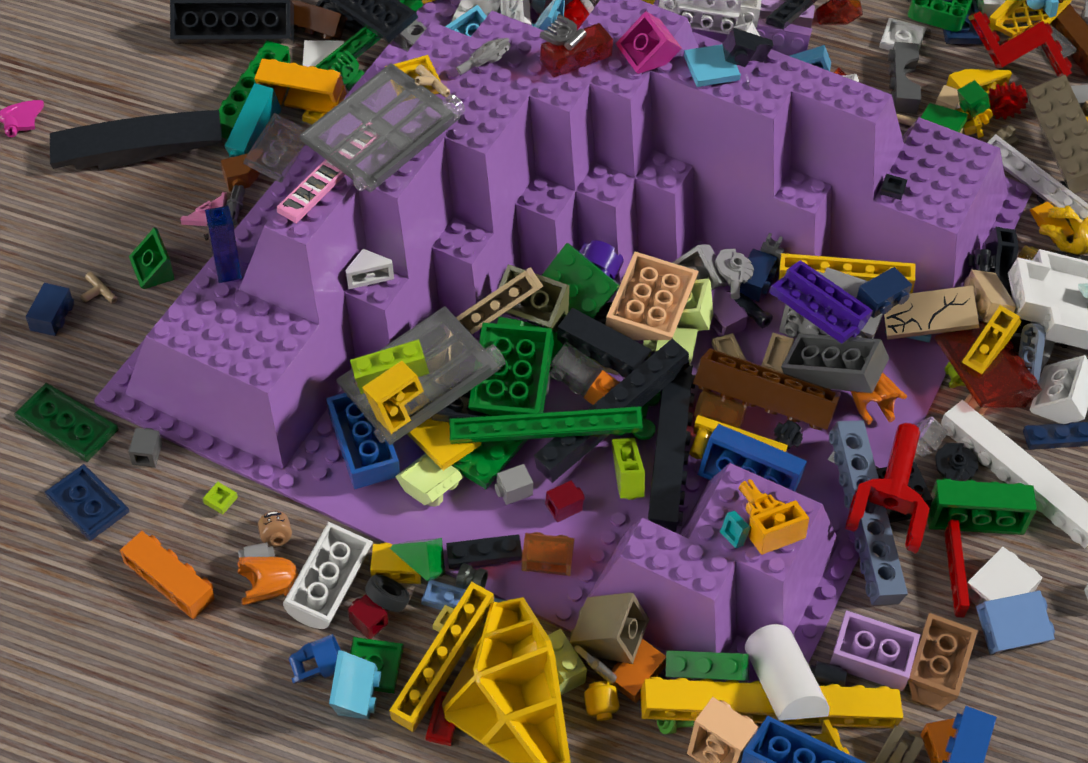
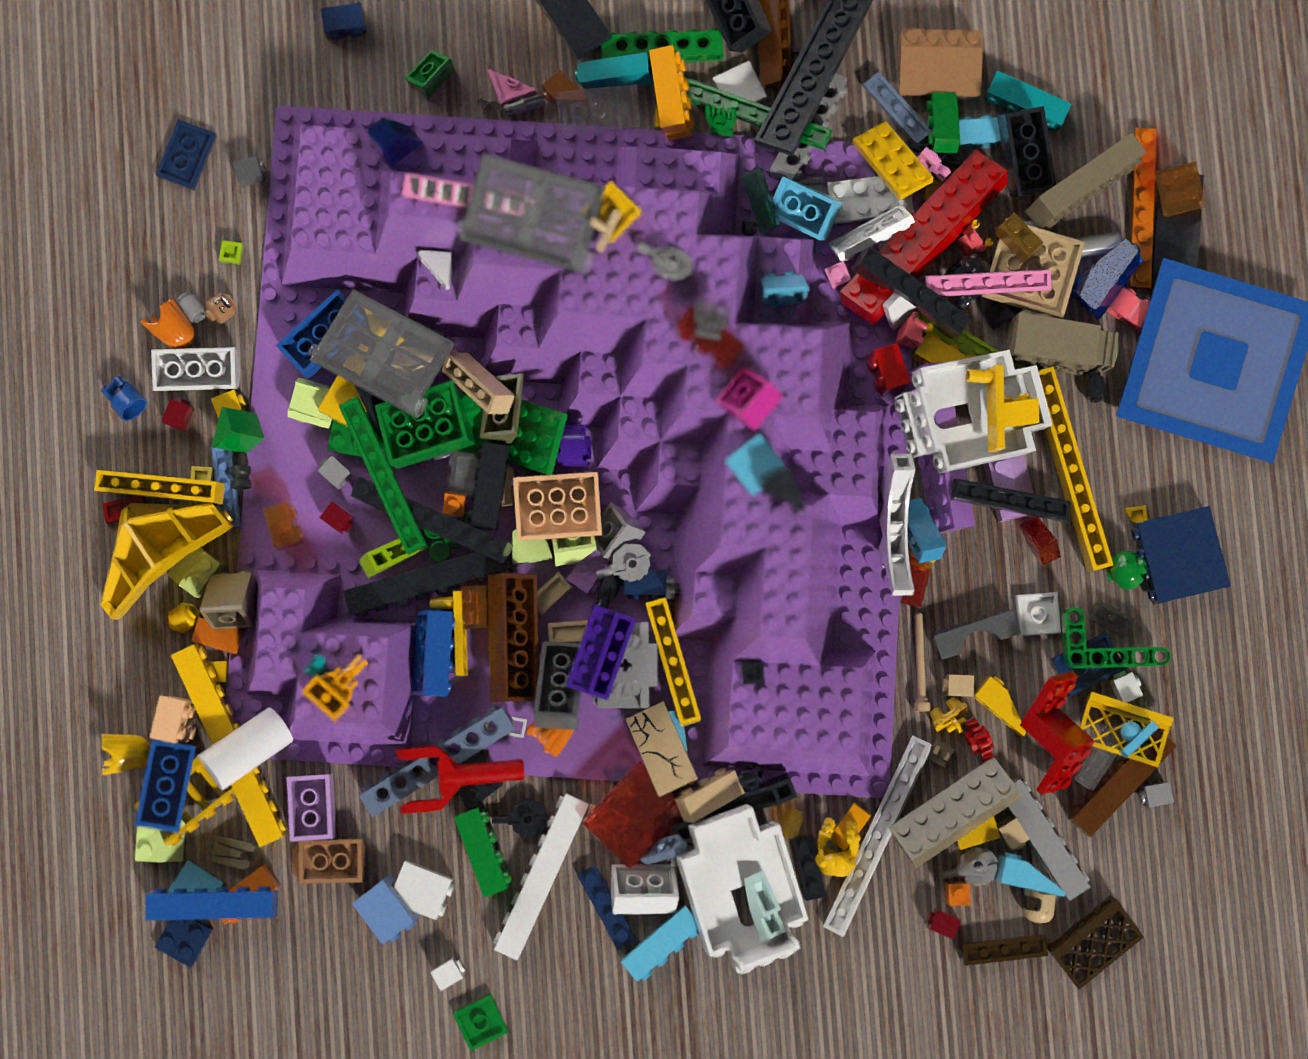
camera: 65 degrees right, 30 degrees up
(66, 422) = (249, 97): dark green tile -> none
(99, 288) = (386, 45): tan piece -> none
(167, 574) = (147, 250): orange brick -> none
(354, 686) = (102, 435): medium azure slope -> none
(372, 365) = (369, 328): lime brick -> none
(386, 657) = (144, 438): green tile -> none
(387, 593) = (188, 420): black tyre -> none
(390, 393) = (331, 345): yellow brick -> none
(484, 551) = (268, 475): black plate -> none
(597, 665) = (194, 605): flat silver piece -> none
(707, 665) = (233, 685): green brick -> none
(788, 433) = (480, 671): black gear -> none
(828, 674) = (277, 778): black brick -> none
(884, 292) = (641, 703): dark blue brick -> none
(930, 436) = (539, 786): clear brick -> none
(945, 117) = (921, 688): green tile -> none
(956, 569) = (420, 849): red tile -> none
(973, 99) = (957, 710): green brick -> none
(992, 339) = (648, 812): yellow slope -> none

